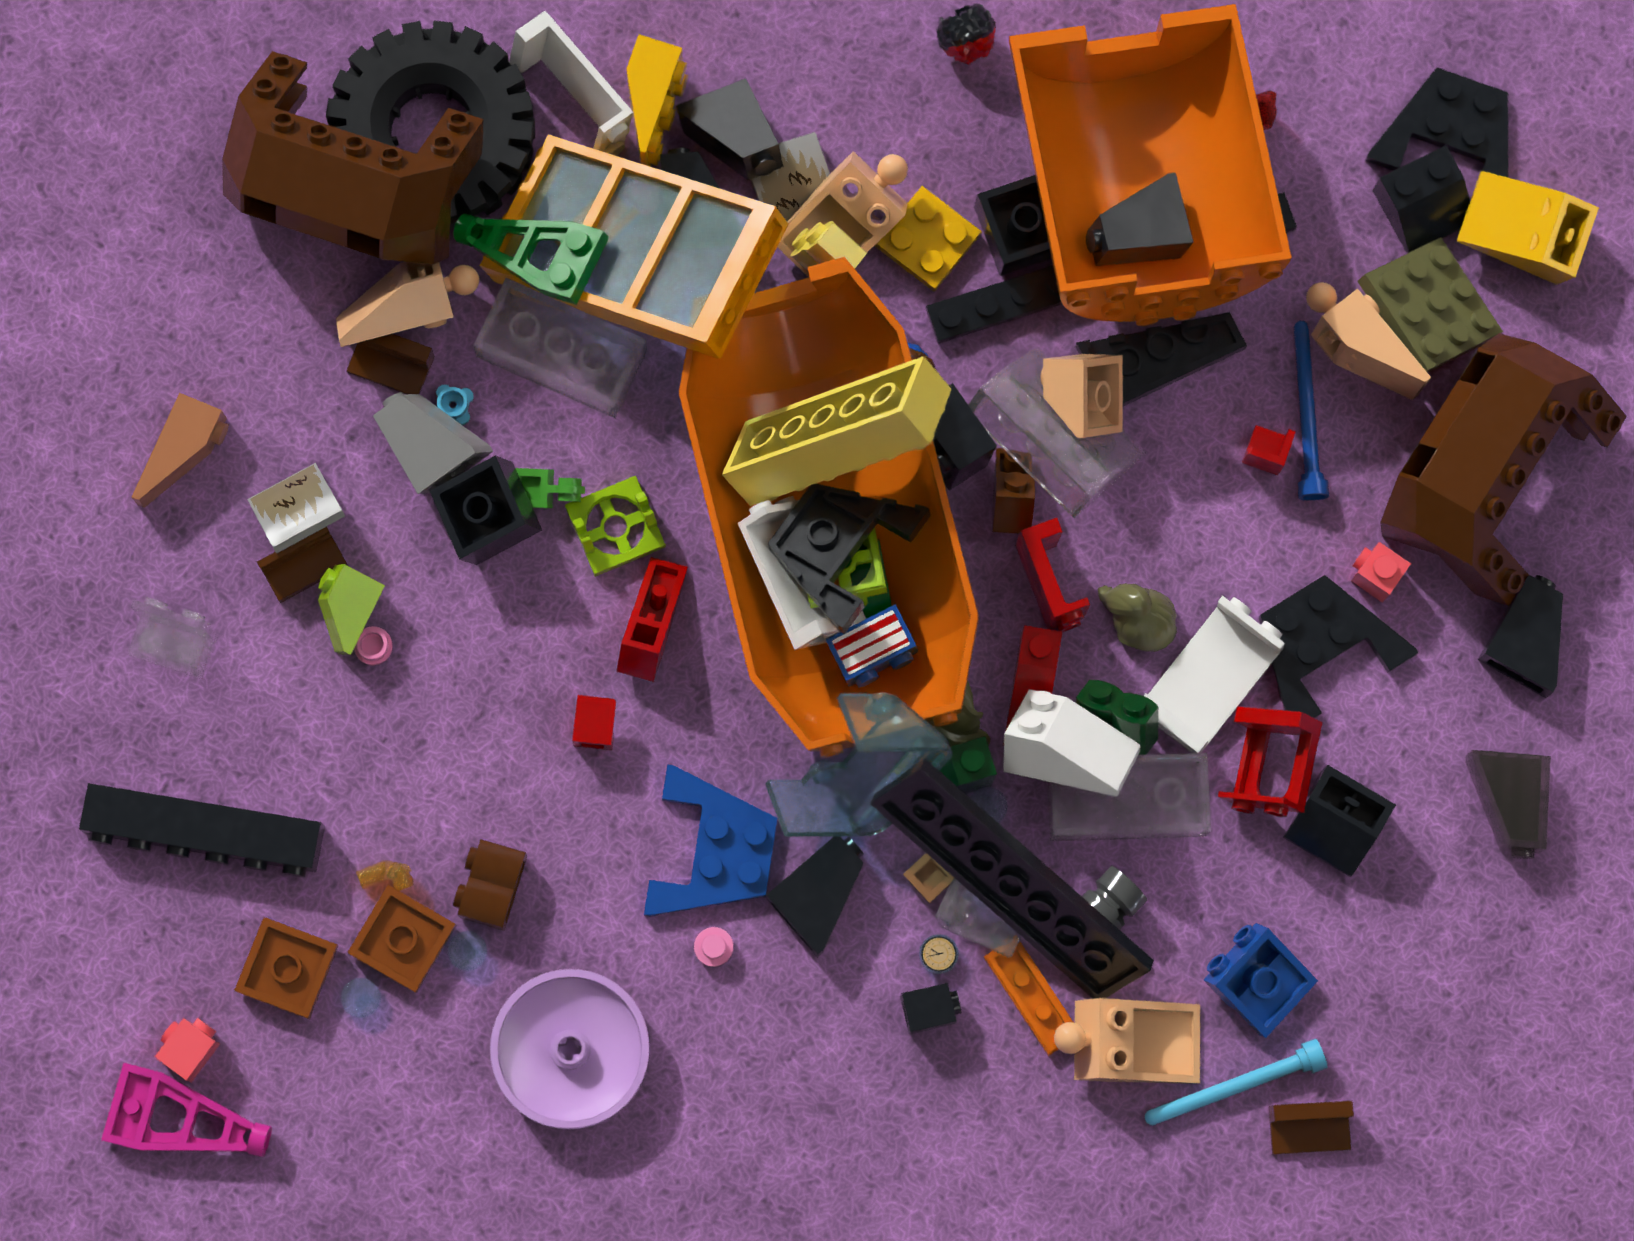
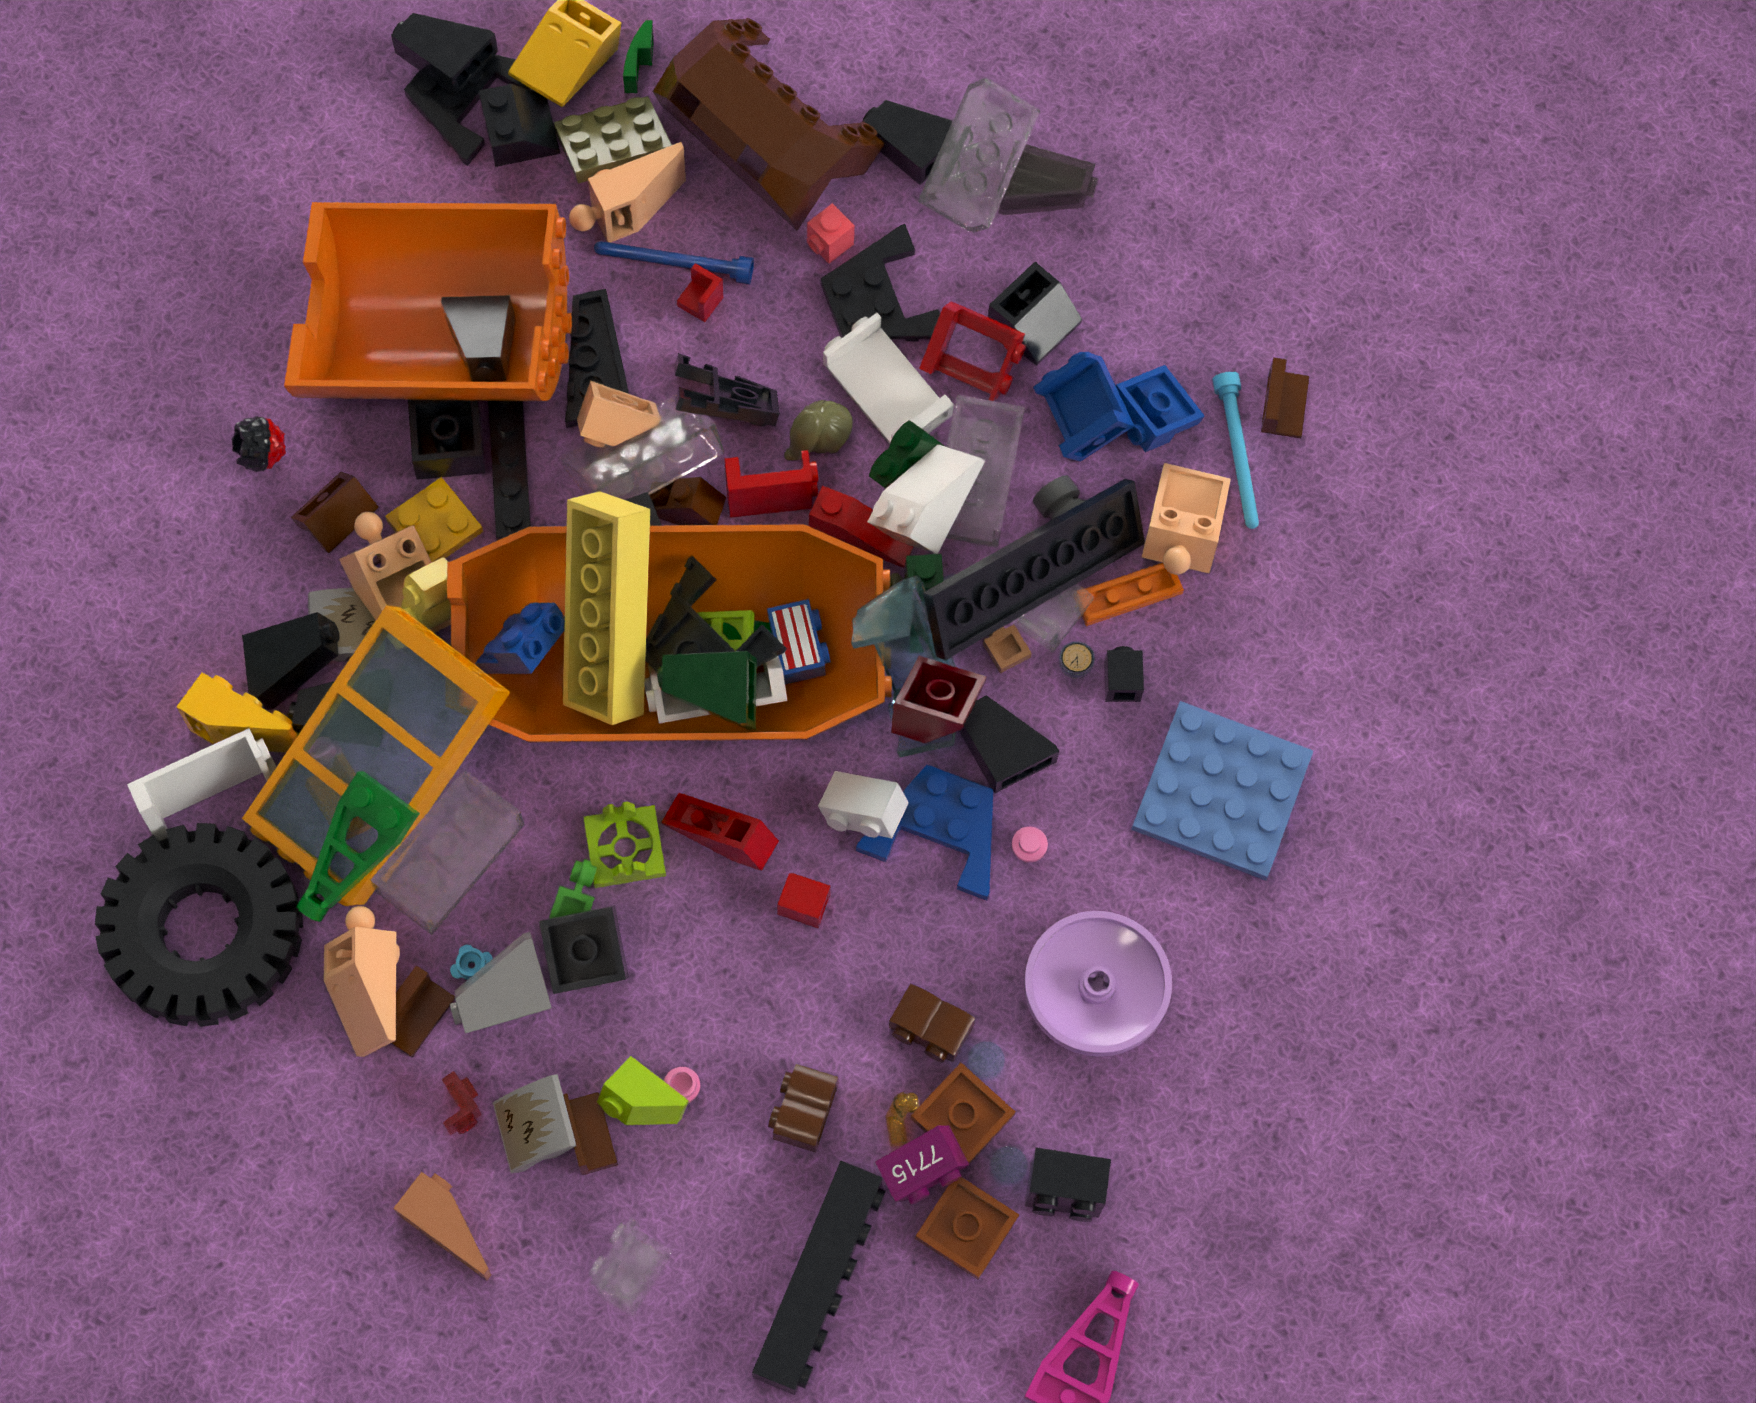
camera: 75 degrees left, 10 degrees down
(187, 1047) = (1022, 1333): coral brick -> none
(311, 431) = (463, 1095): none -> clear red bracket
(335, 906) = (923, 1164): none -> magenta brick
(339, 181) = (233, 1005): reddish brown wedge -> none
(344, 1059) = (1067, 1184): none -> black brick
(373, 774) = (804, 1108): none -> reddish brown brick
(708, 759) = (863, 804): none -> white brick
(780, 567) = (713, 683): none -> dark green slope
(791, 359) = (523, 640): none -> blue plate
(825, 1144) = (1222, 790): none -> medium blue plate
(828, 805) = (935, 700): none -> dark red slope
(915, 133) = (333, 510): none -> reddish brown panel
(1145, 518) = (728, 398): none -> black wing
(1238, 900) = (1084, 405): none -> blue panel
(1488, 95) = (444, 49): none -> black slope
(1515, 713) = (979, 155): none -> clear brick
(1557, 308) = (639, 53): none -> green slope

